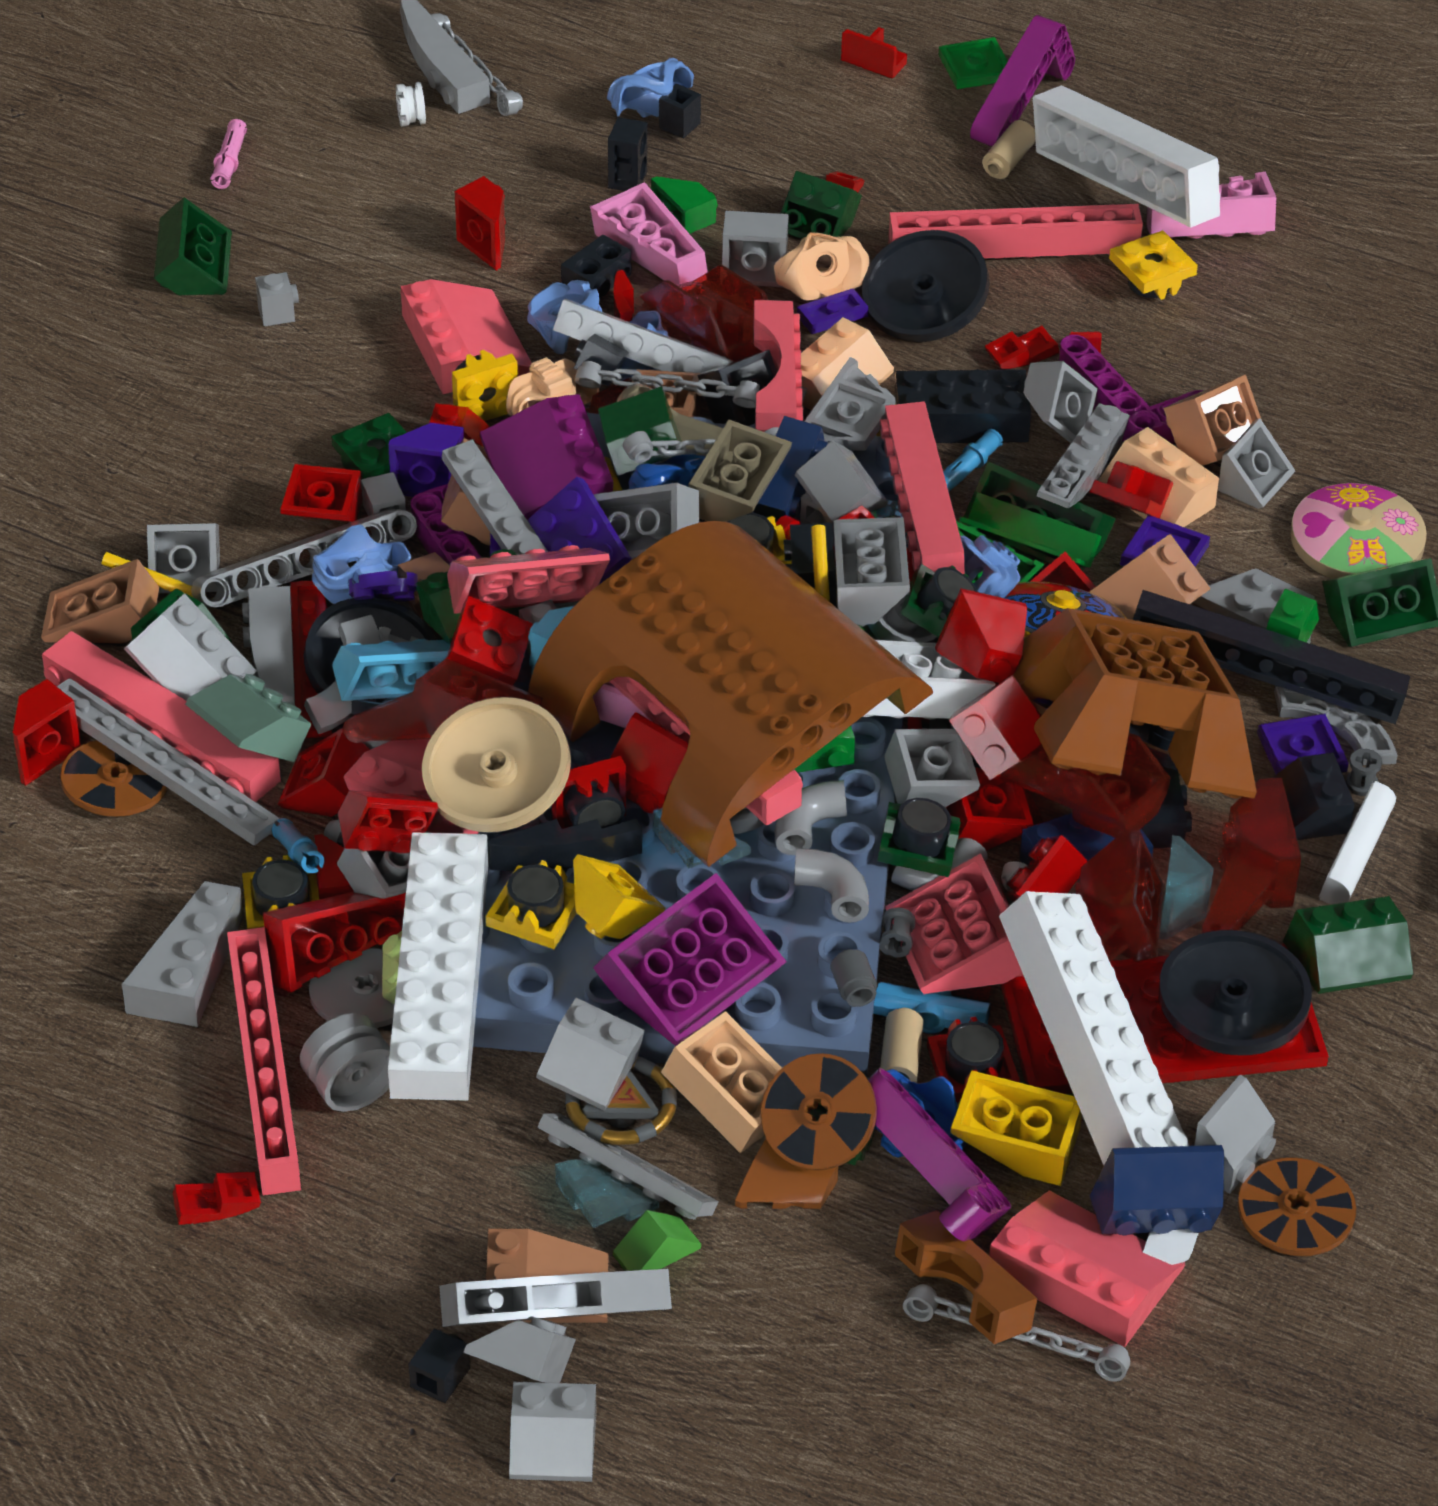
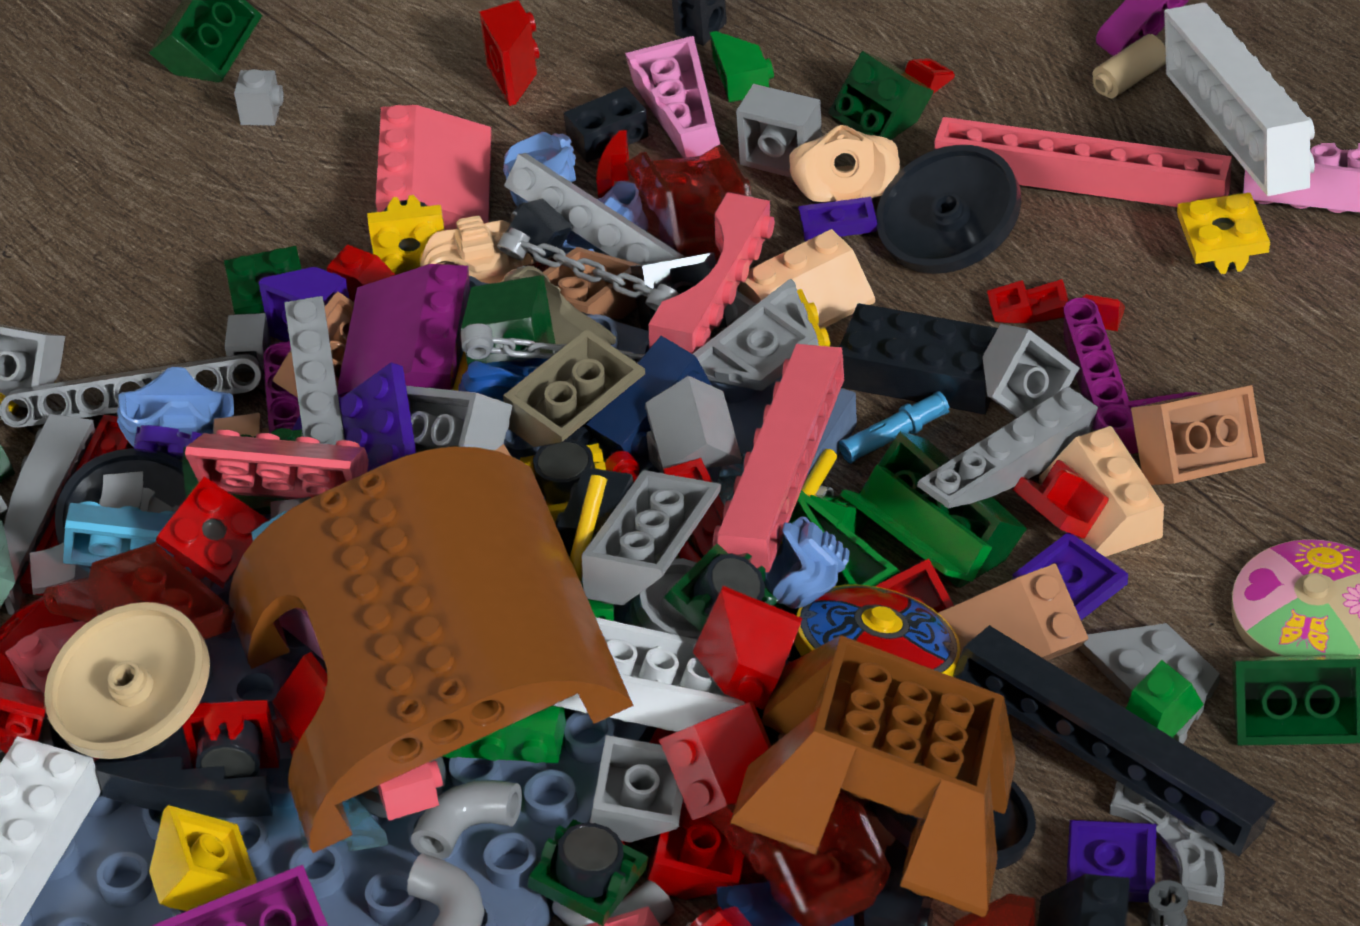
camera: 25 degrees right, 0 degrees up
(323, 493) = (180, 325): red slope -> none
(535, 905) = (112, 851): piece -> none
(1254, 467) = (1223, 497): light grey slope -> none

